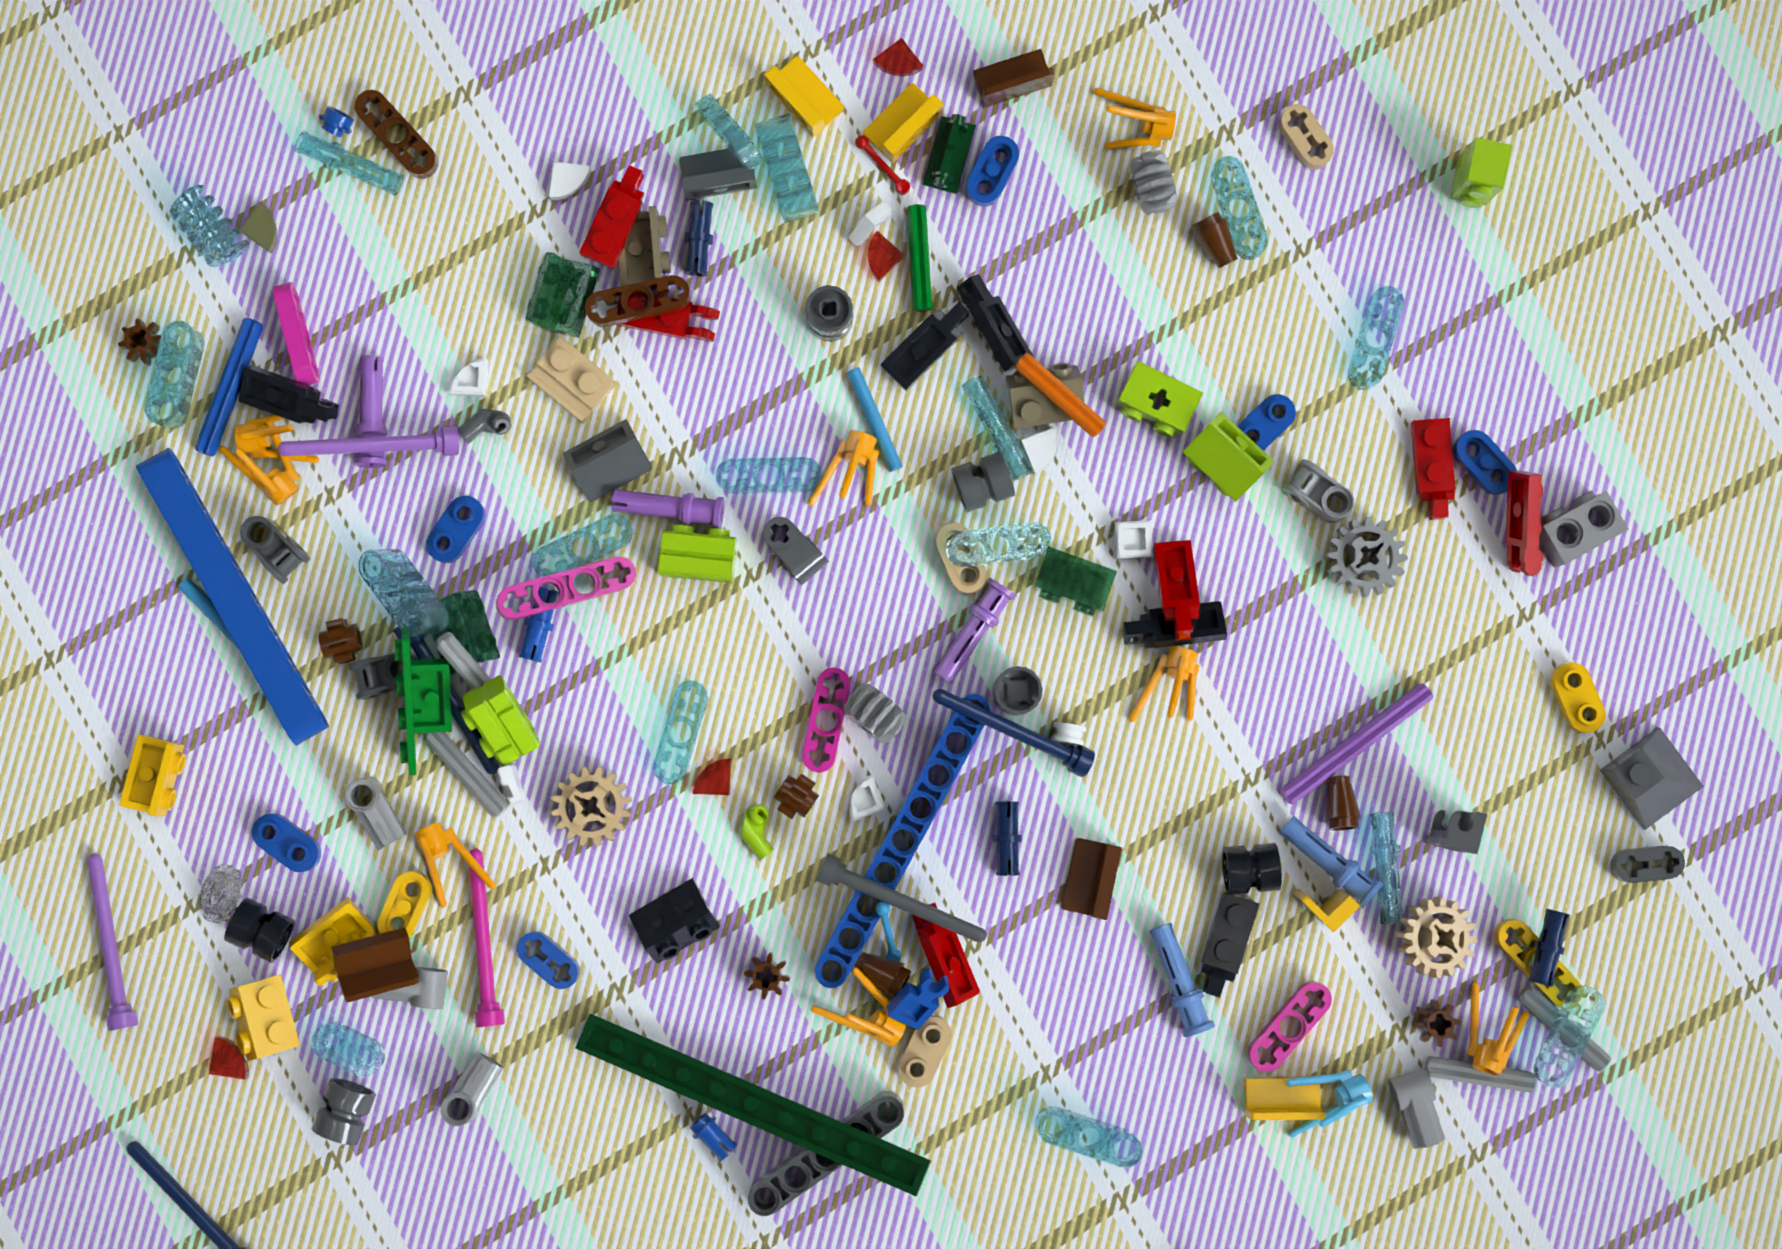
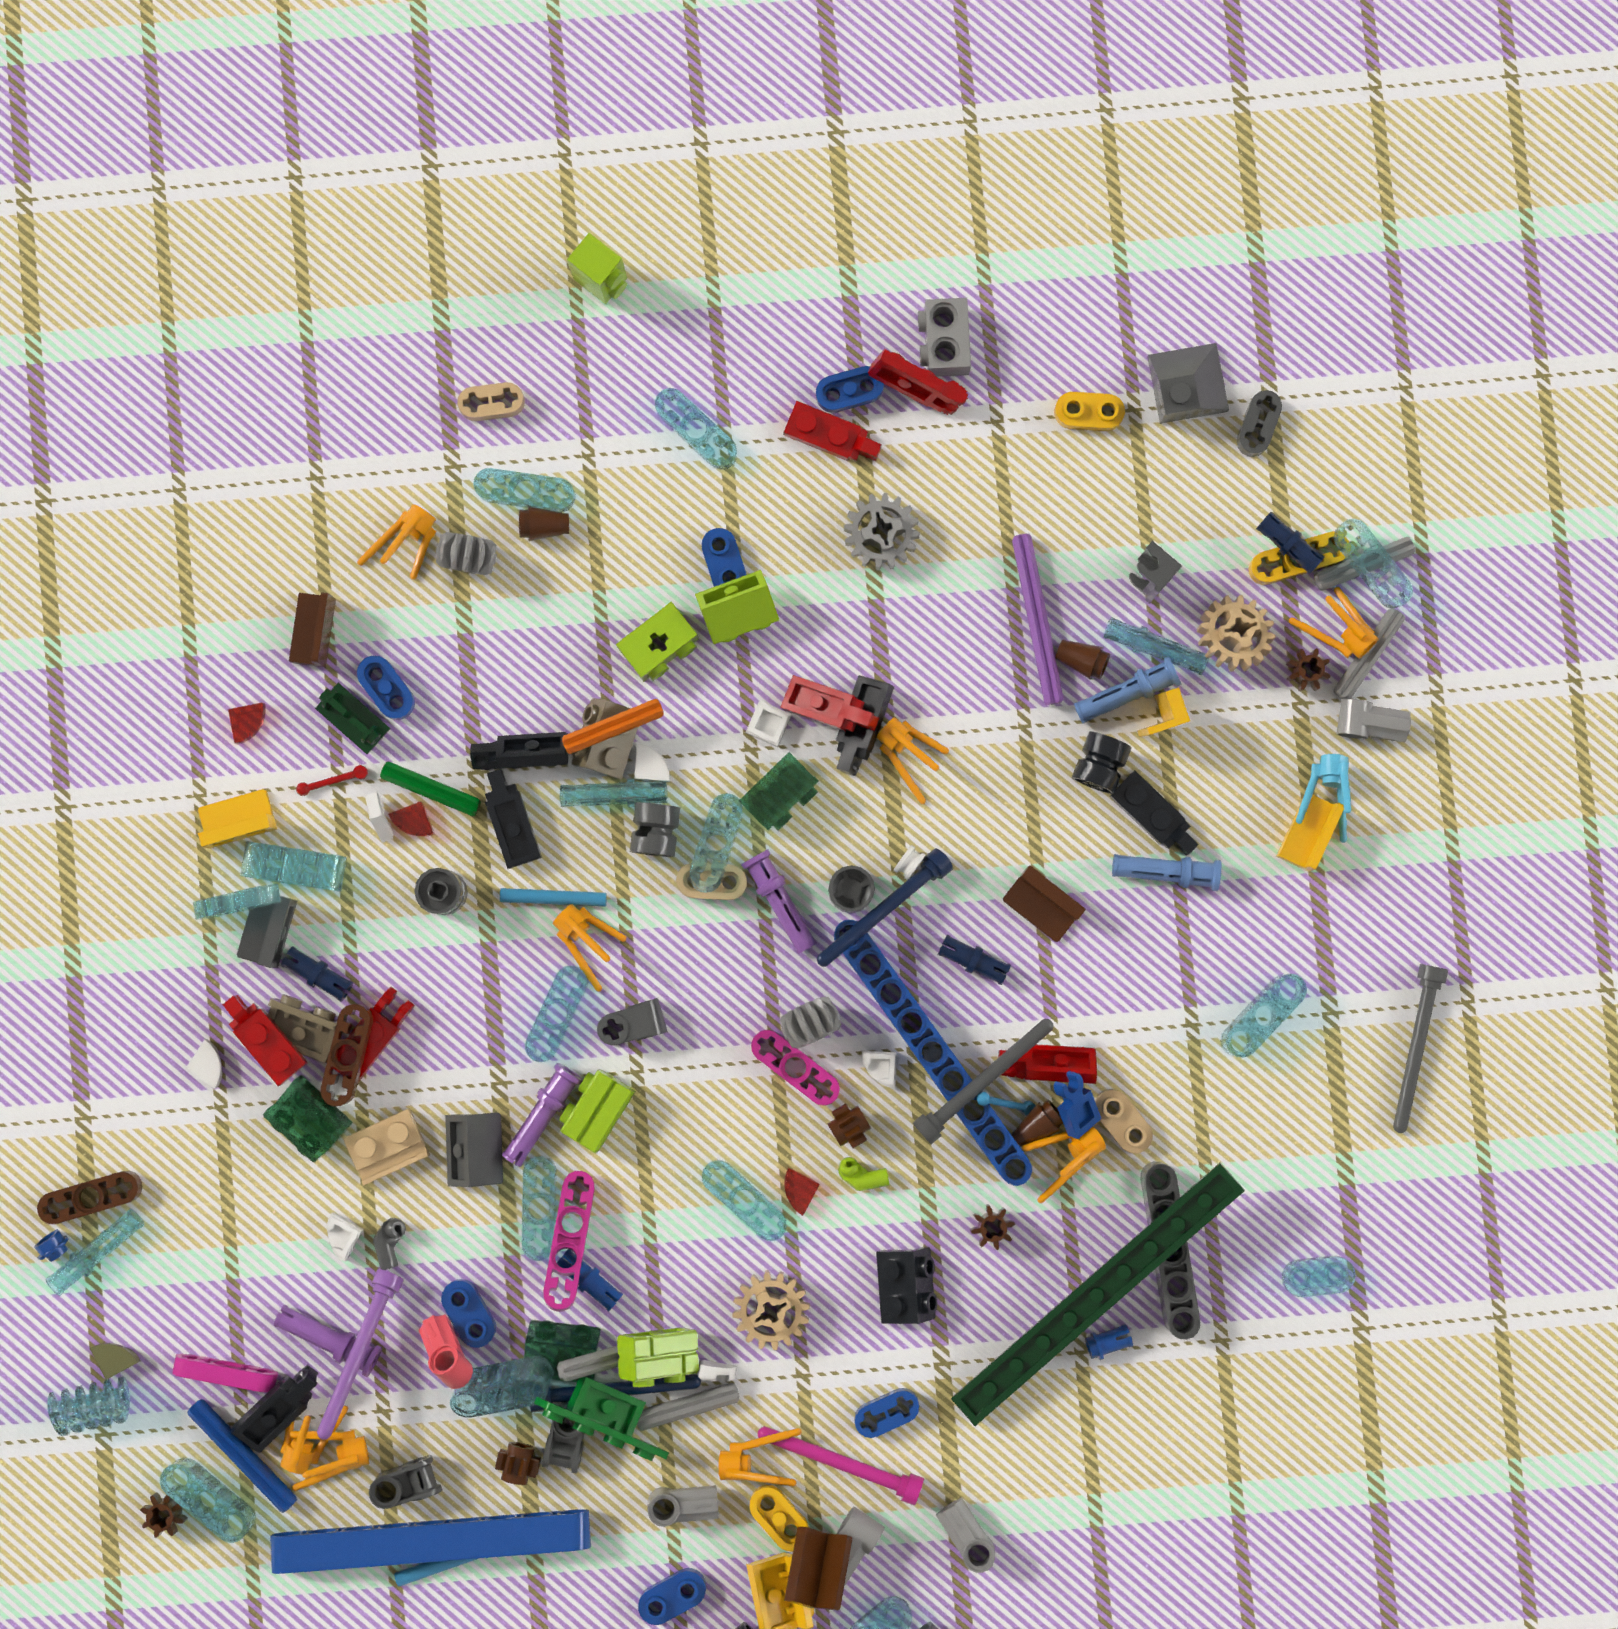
camera: 60 degrees left, 0 degrees up
(410, 524) = (445, 1351): none -> coral piece
(903, 122) = (303, 743): yellow panel -> none
(1305, 1026) = (1258, 782): dark pink beam -> none
(1317, 491) = (804, 545): light grey piece -> none

